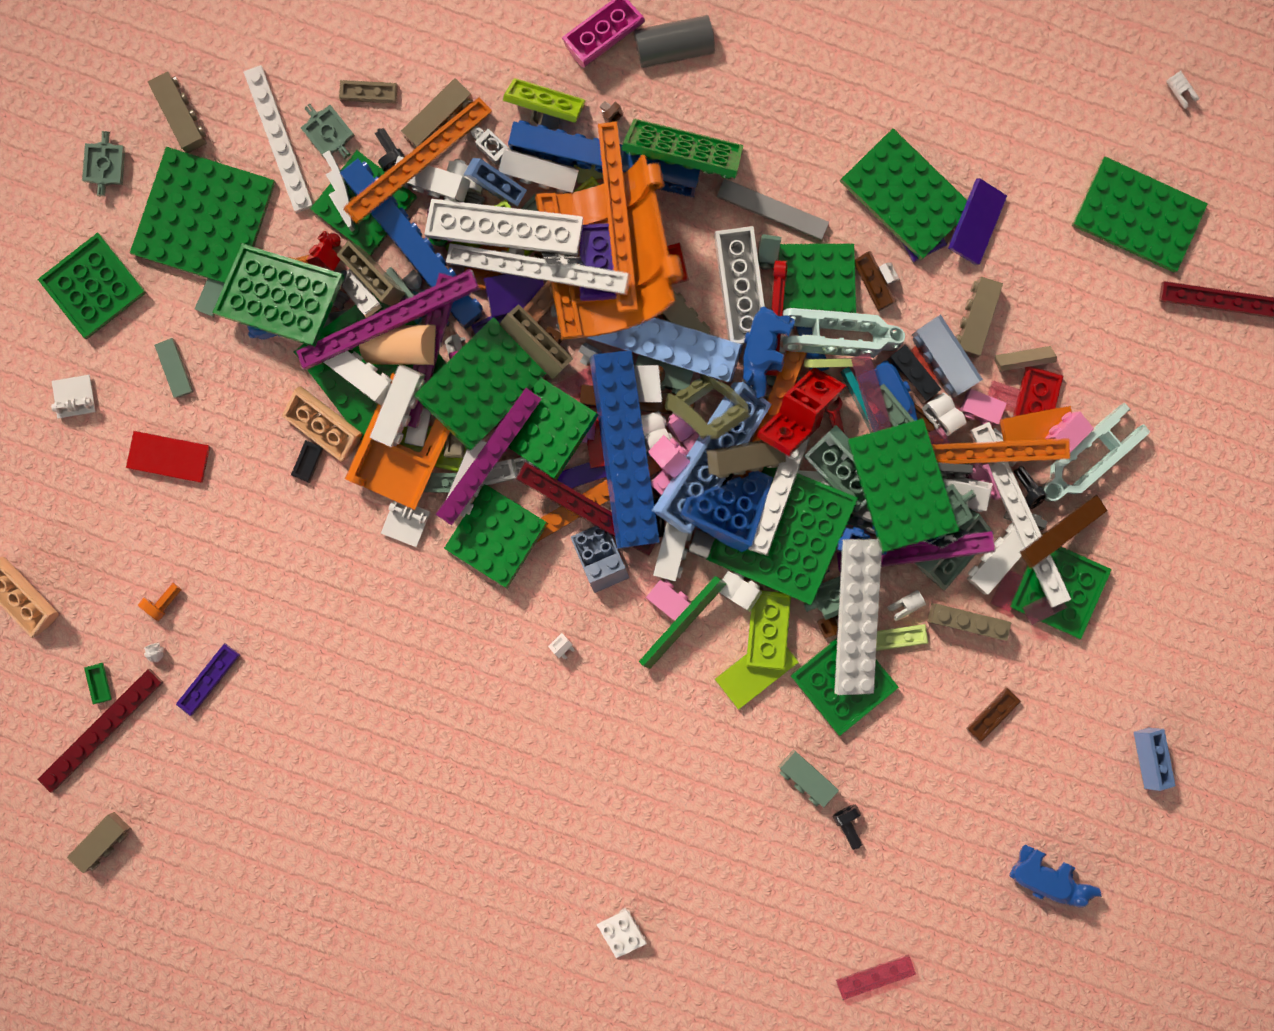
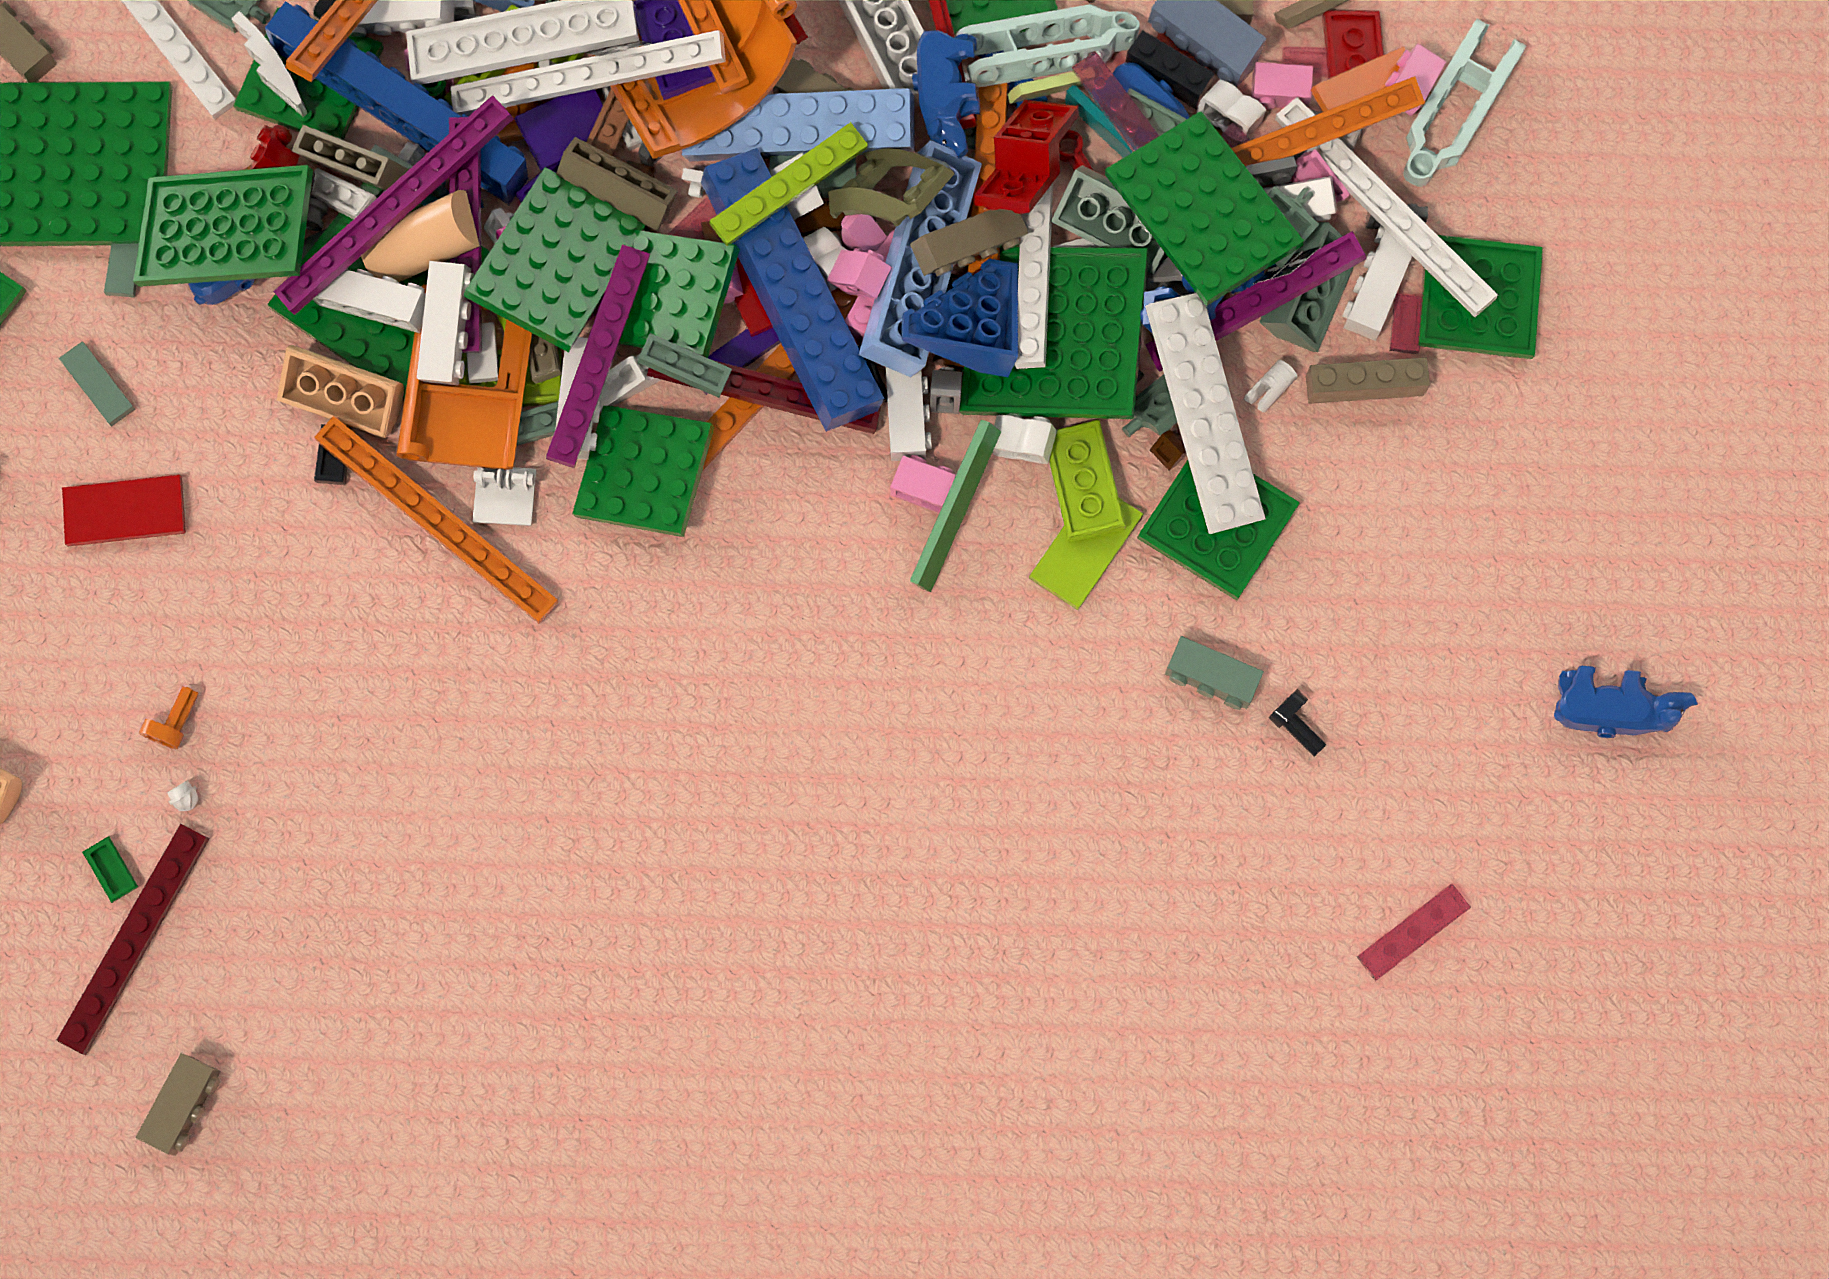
camera: 15 degrees left, 10 degrees down
(208, 679) = (276, 812): dark purple tile -> none
(357, 526) = (436, 520): none -> orange plate
(540, 483) = (684, 365): none -> sand green plate
(560, 646) = (788, 597): white tile -> none
(599, 558) = (806, 457): sand blue slope -> none
(622, 933) = (1015, 987): white hinge -> none
(643, 384) = (788, 184): none -> lime plate
(901, 637) = (1280, 434): yellowish green tile -> none
(993, 715) = (1449, 502): reddish brown tile -> none
(1036, 494) = (1398, 176): black piece -> none
(1041, 609) = (1465, 329): clear pink tile -> none
(1063, 531) = (1453, 210): reddish brown tile -> none
(1154, 759) = (1700, 486): medium blue brick -> none

